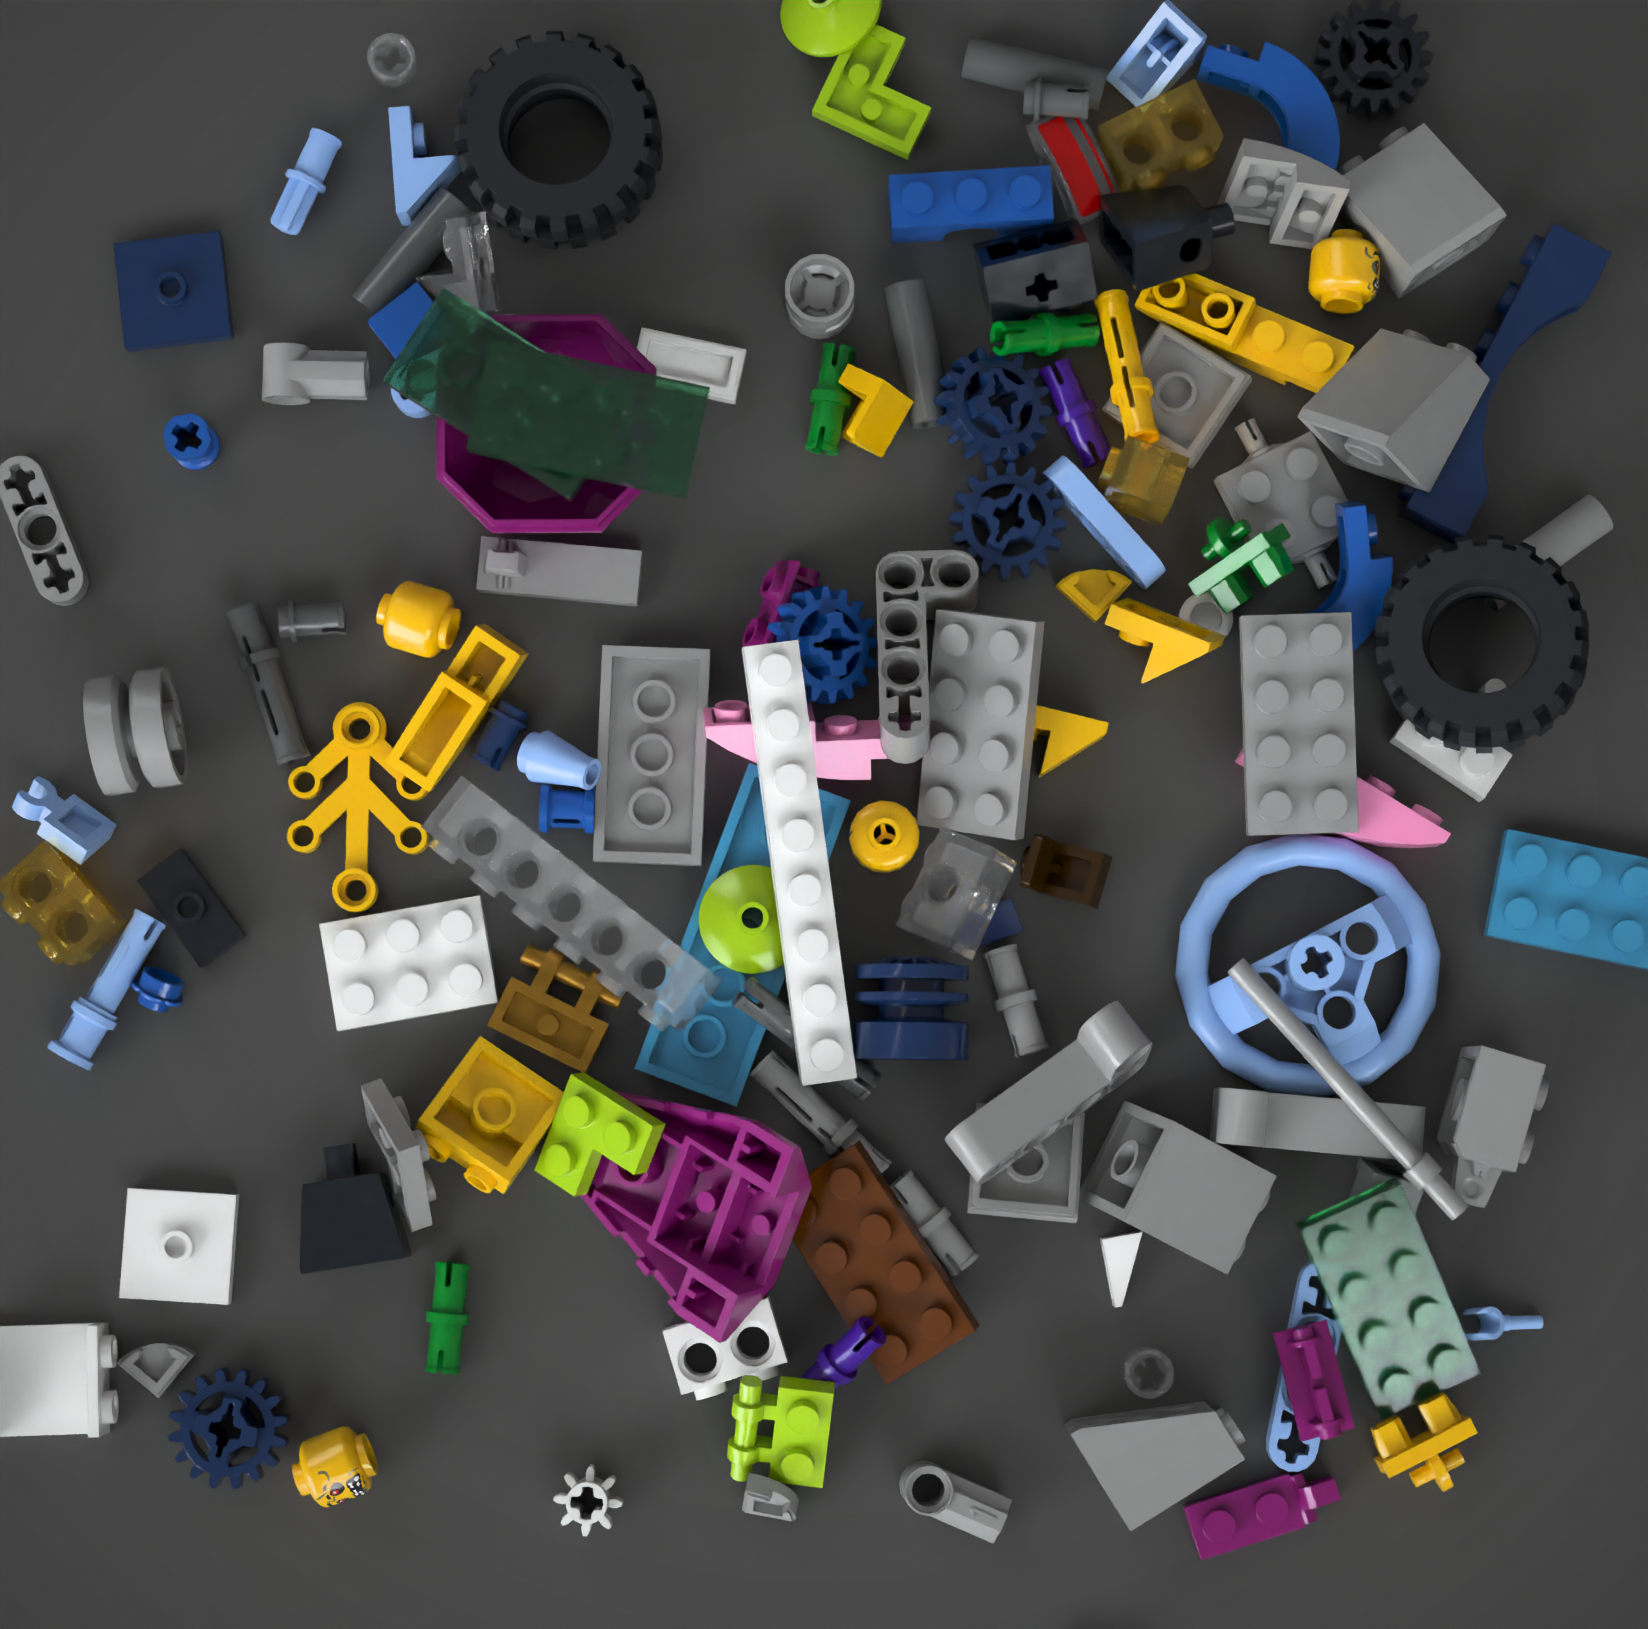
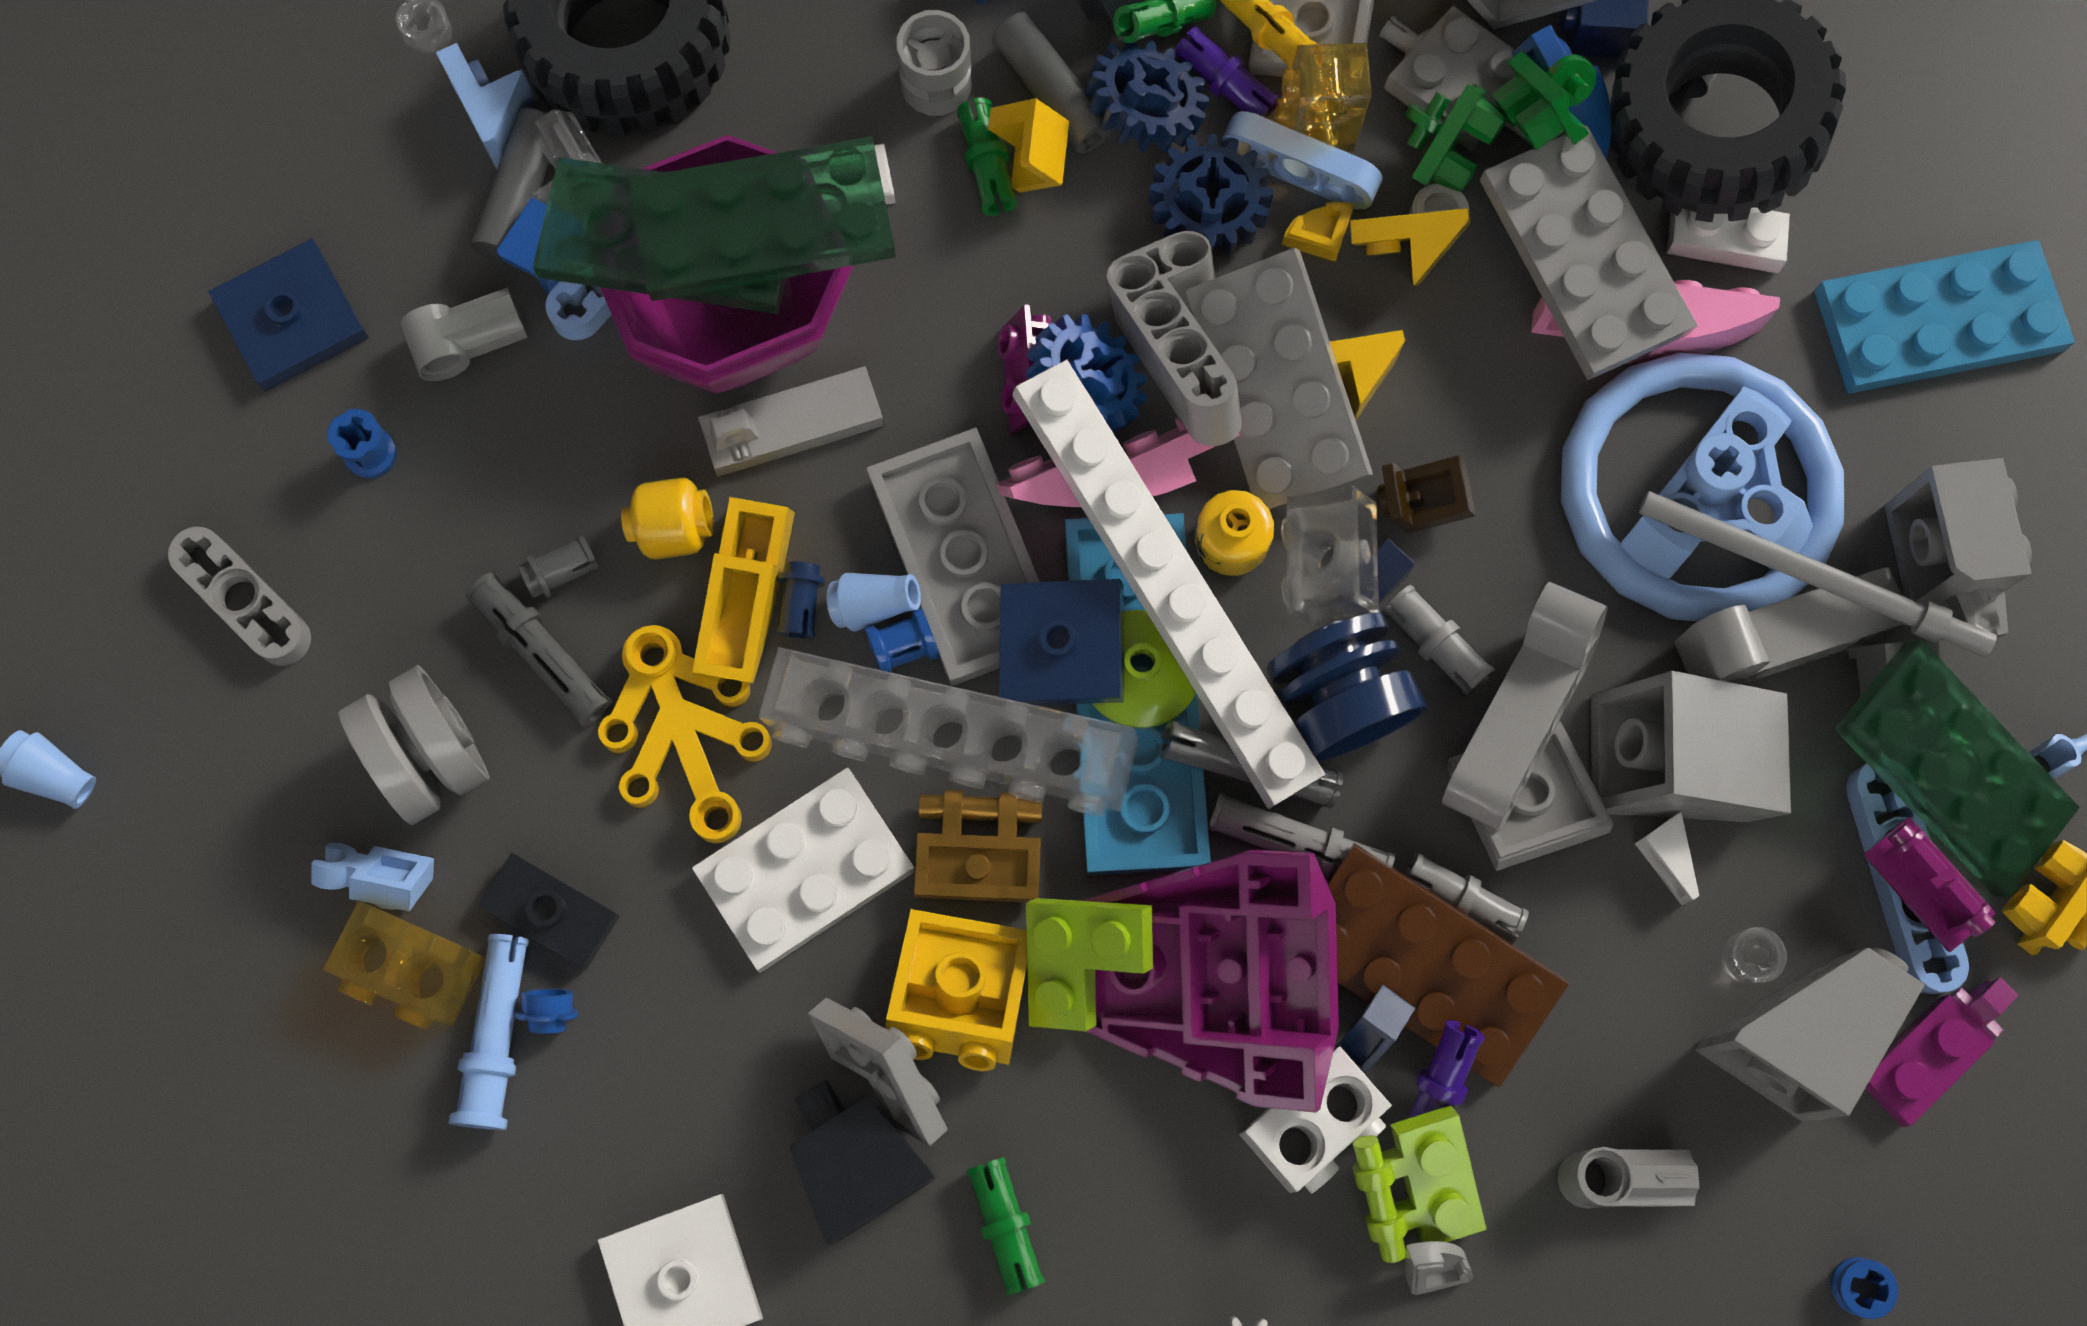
camera: 30 degrees left, 10 degrees down
(305, 181) = (382, 160): light blue axle -> none
(694, 872) = (1062, 642): none -> dark blue plate
(807, 1295) = (1376, 1028): none -> dark blue piece
(1330, 573) = (1542, 100): none -> green hips

